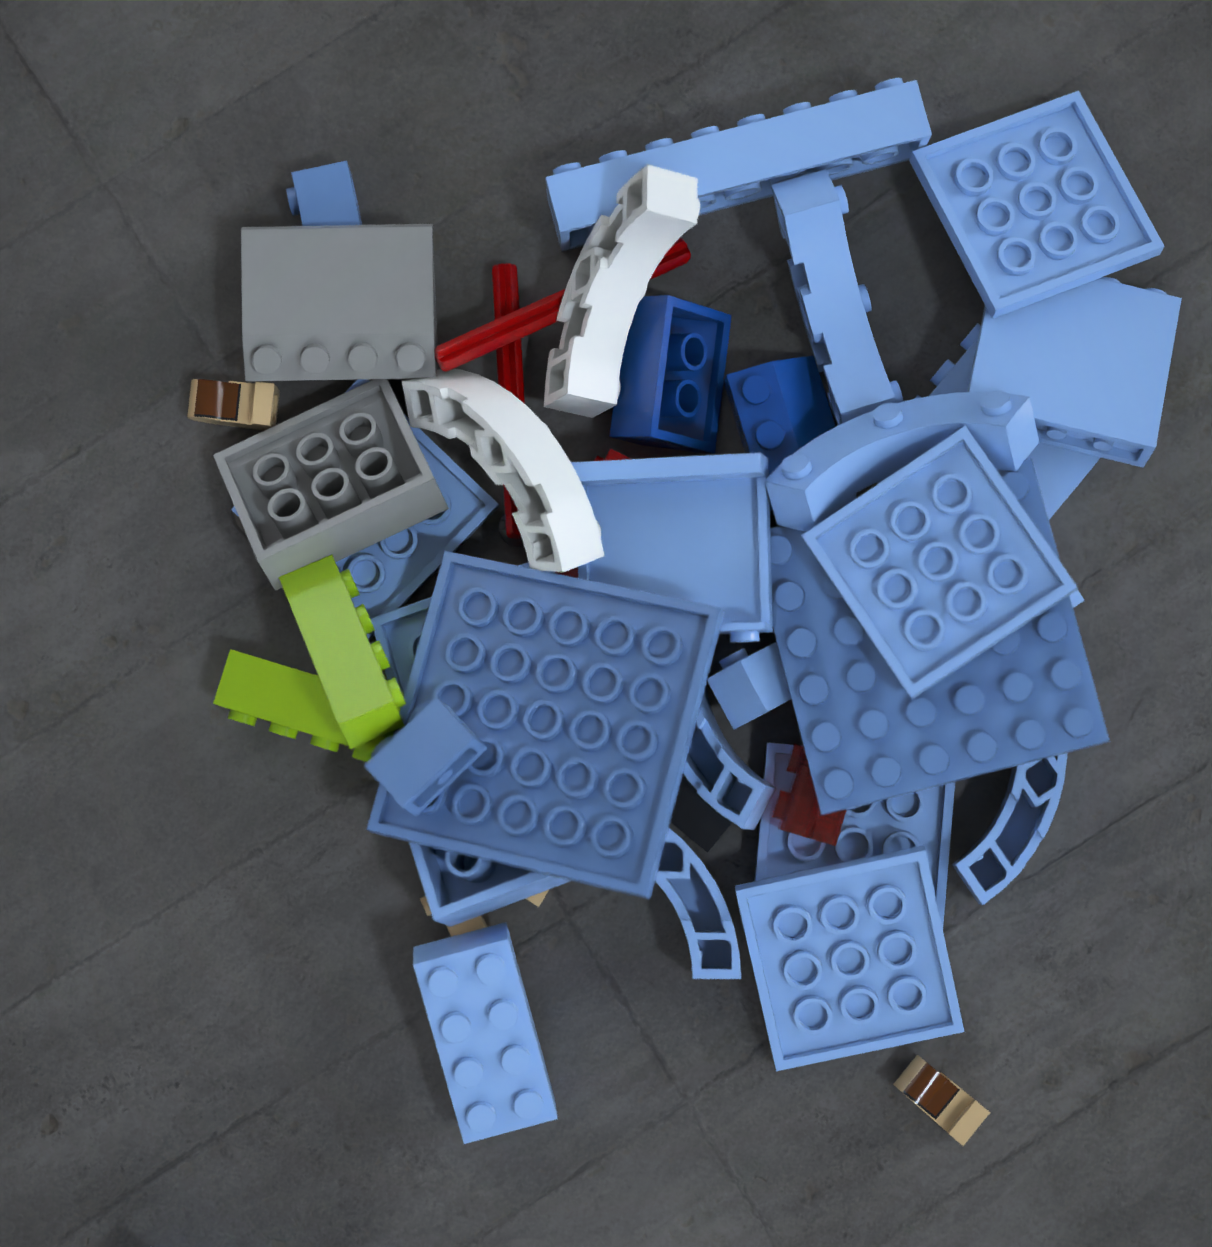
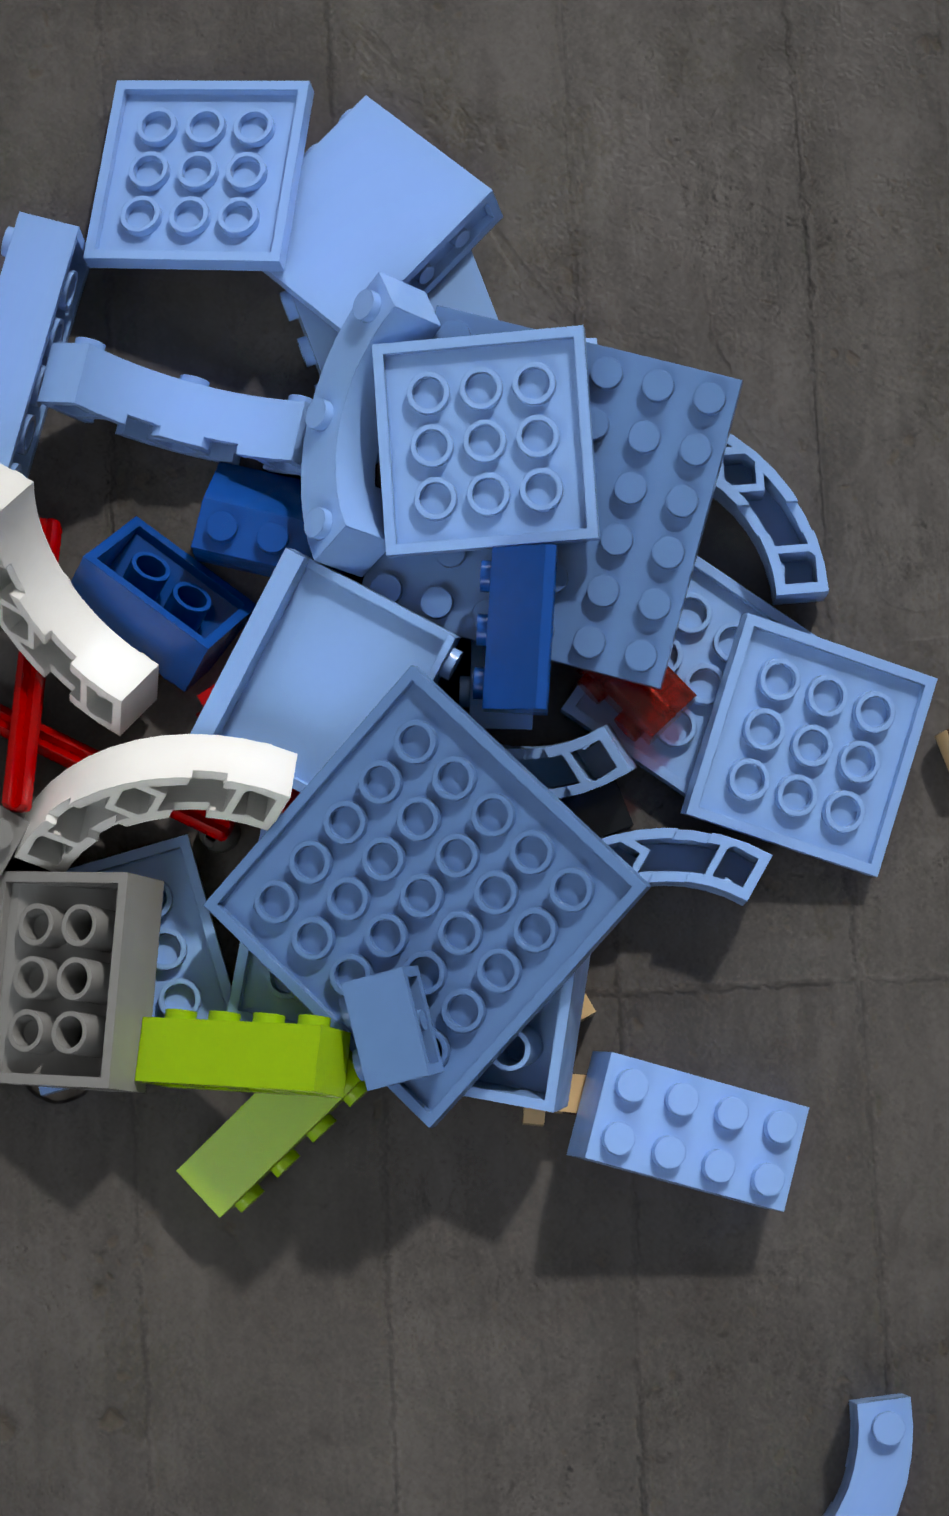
camera: 60 degrees left, 5 degrees down
(797, 675) = (517, 629): none -> blue slope

